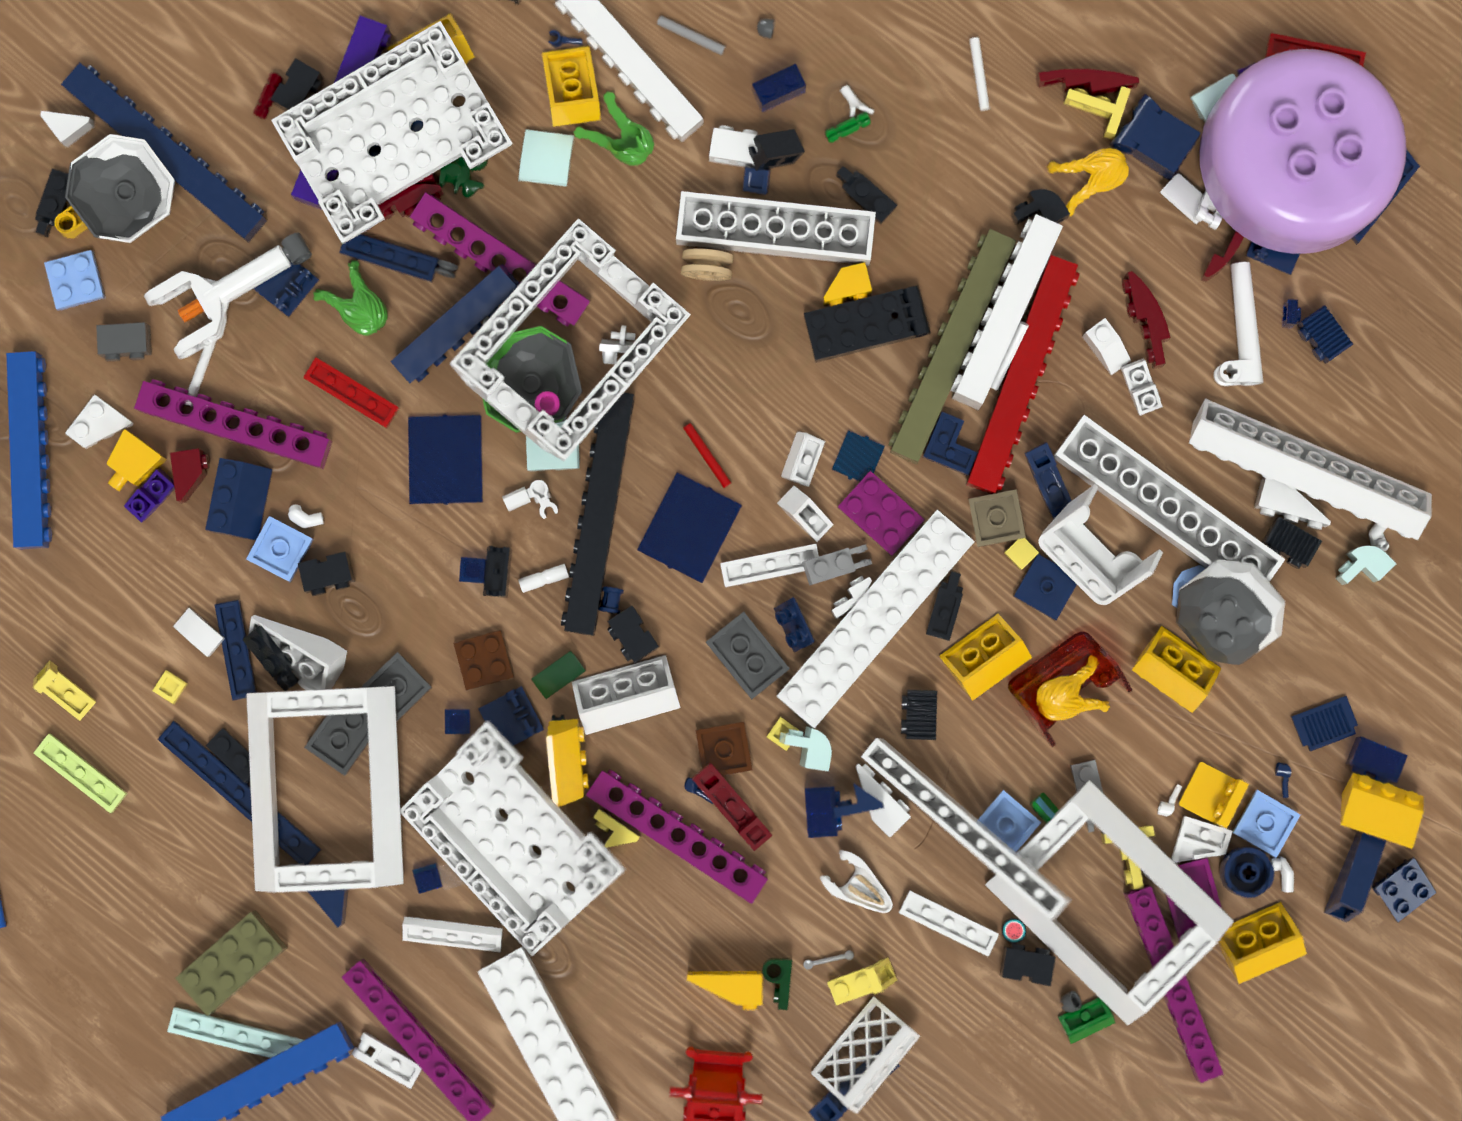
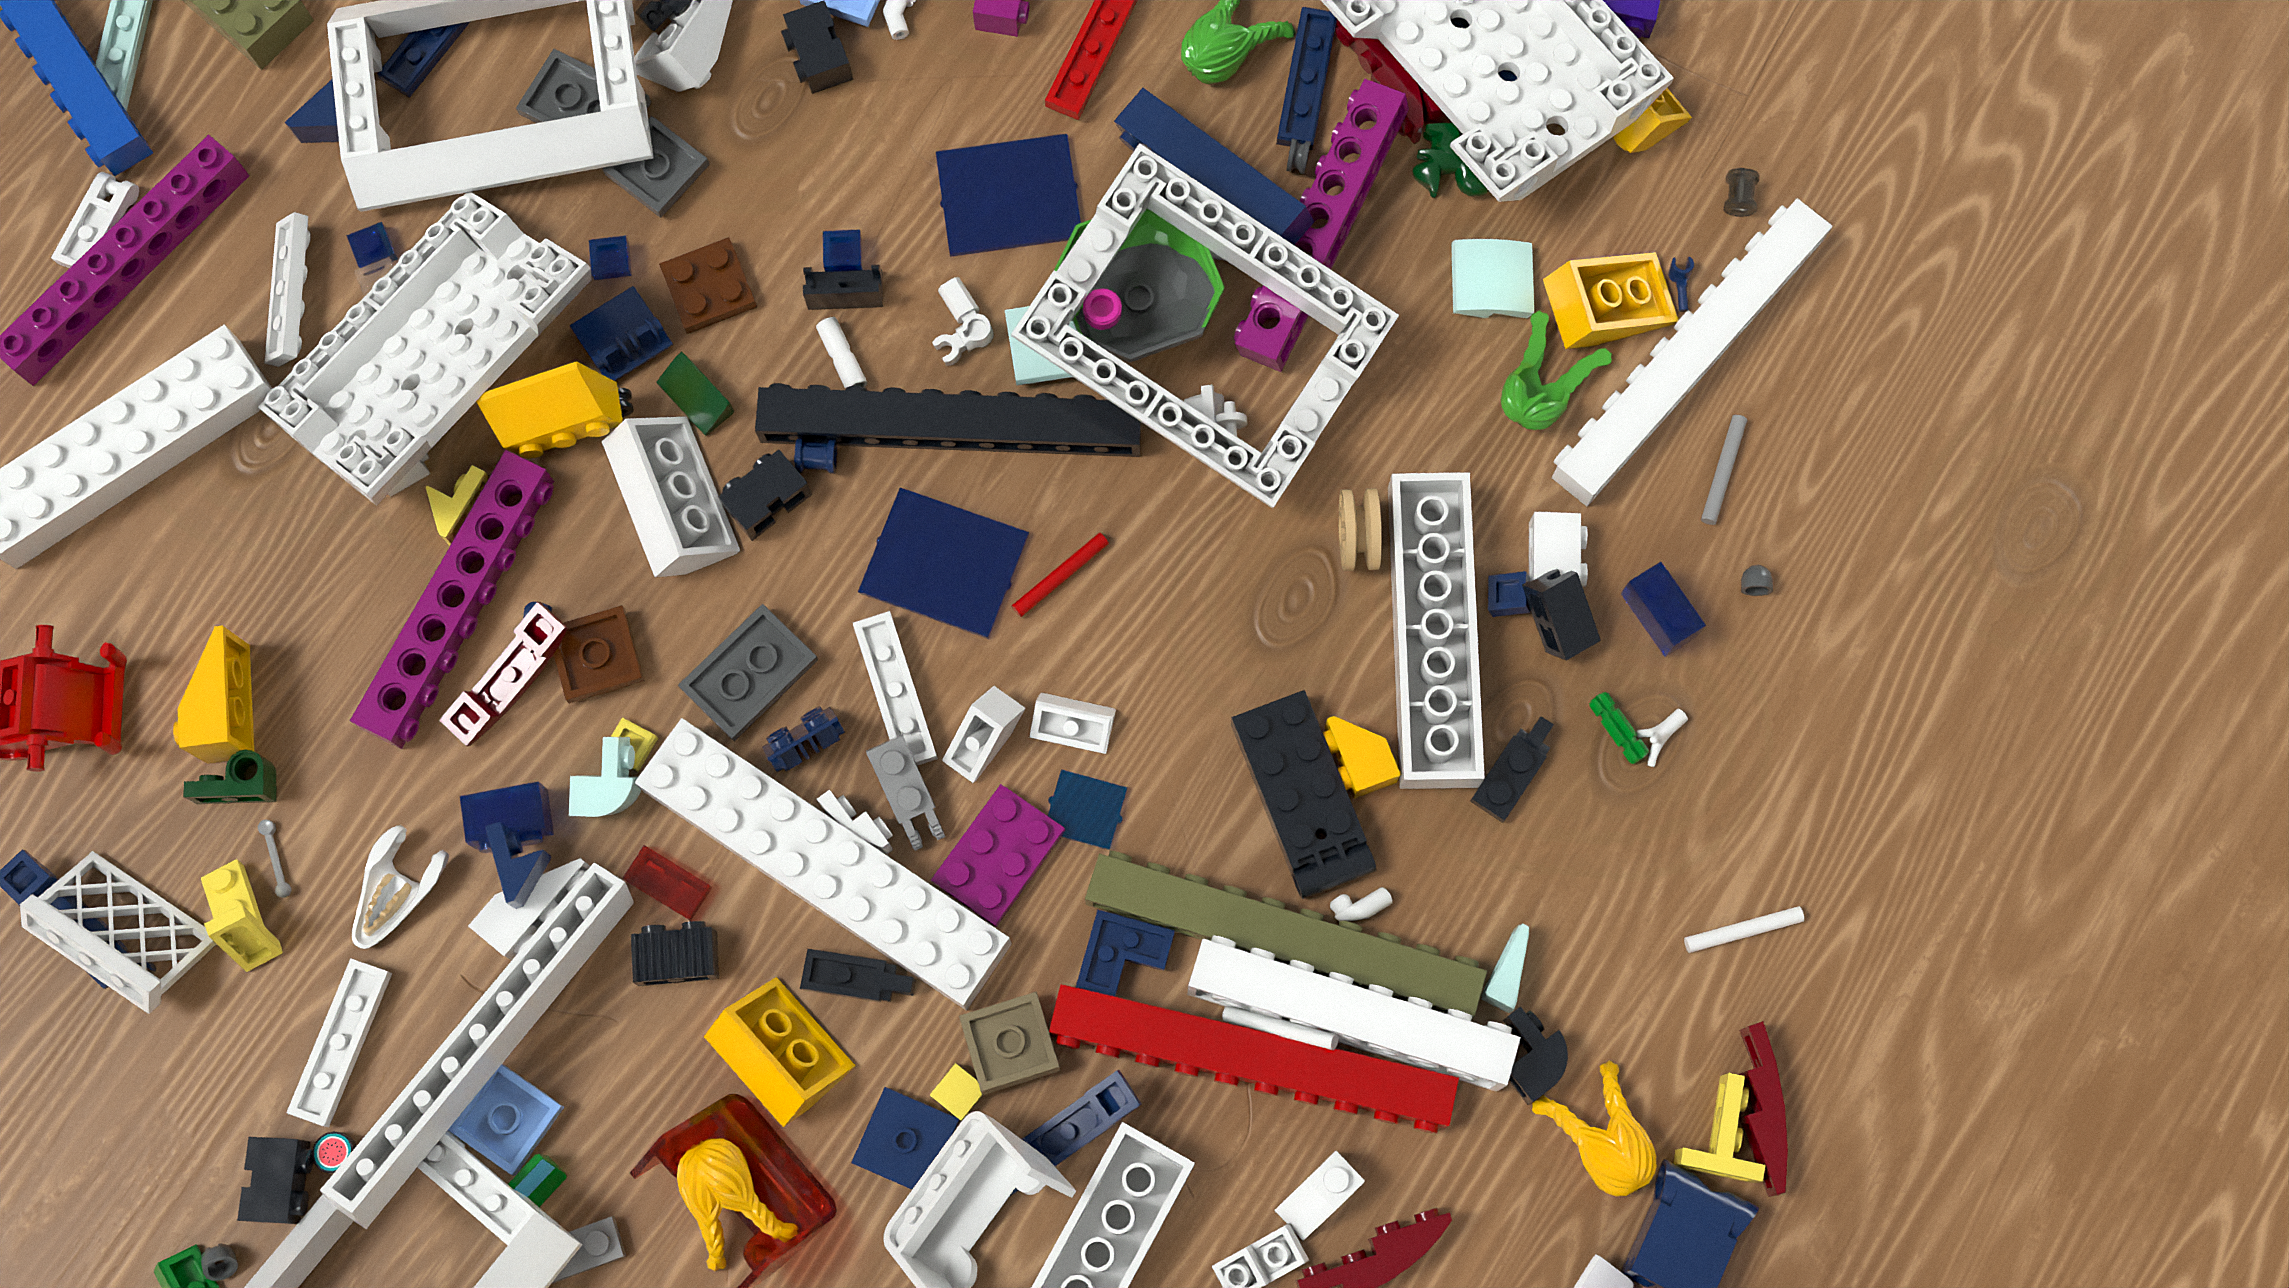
camera: 80 degrees right, 10 degrees down
(873, 717) = (667, 883): none -> clear red tile
(941, 299) = (1361, 909): none -> white arm
(988, 216) = (1505, 979): none -> light aqua slope

